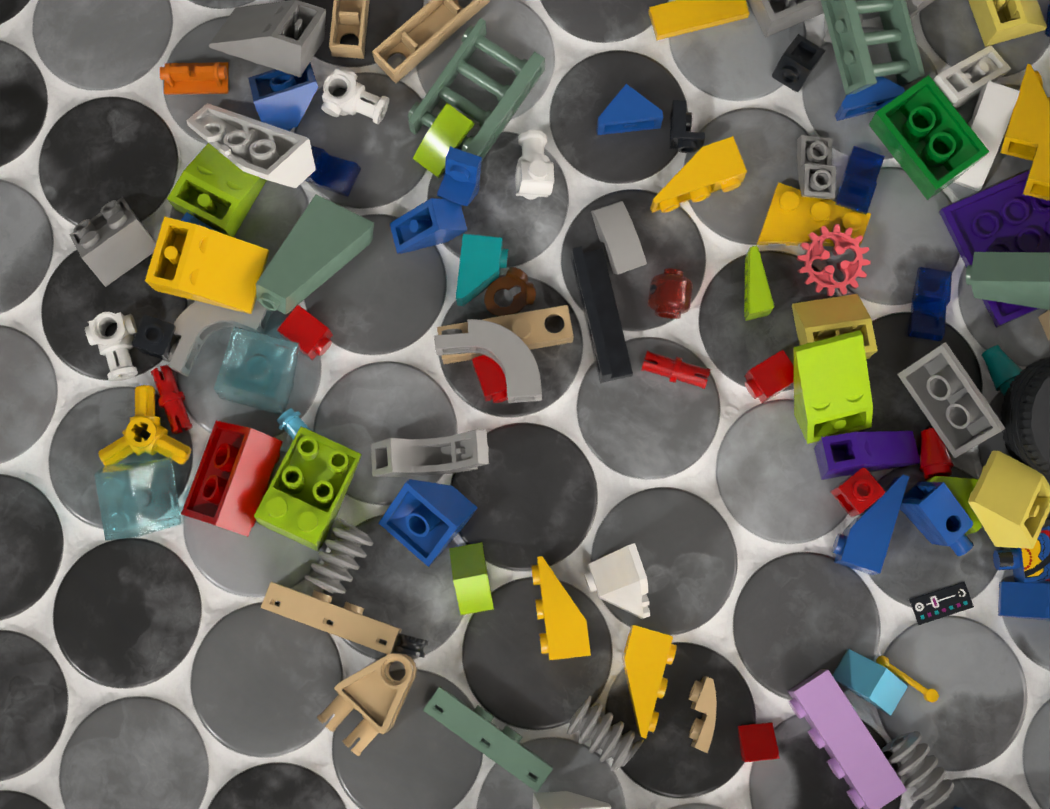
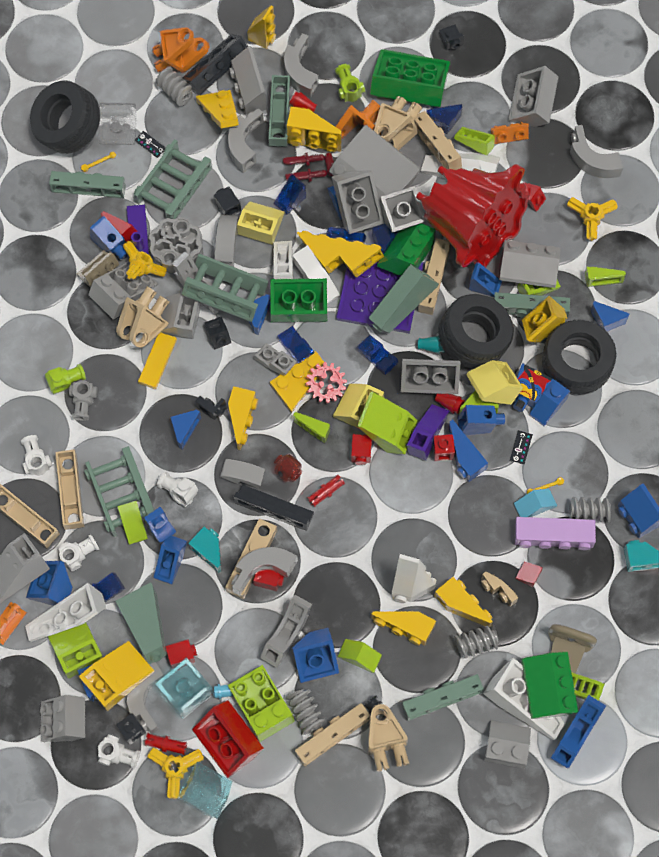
camera: 55 degrees left, 10 degrees down
(513, 278) = (225, 535): reddish brown piece -> none

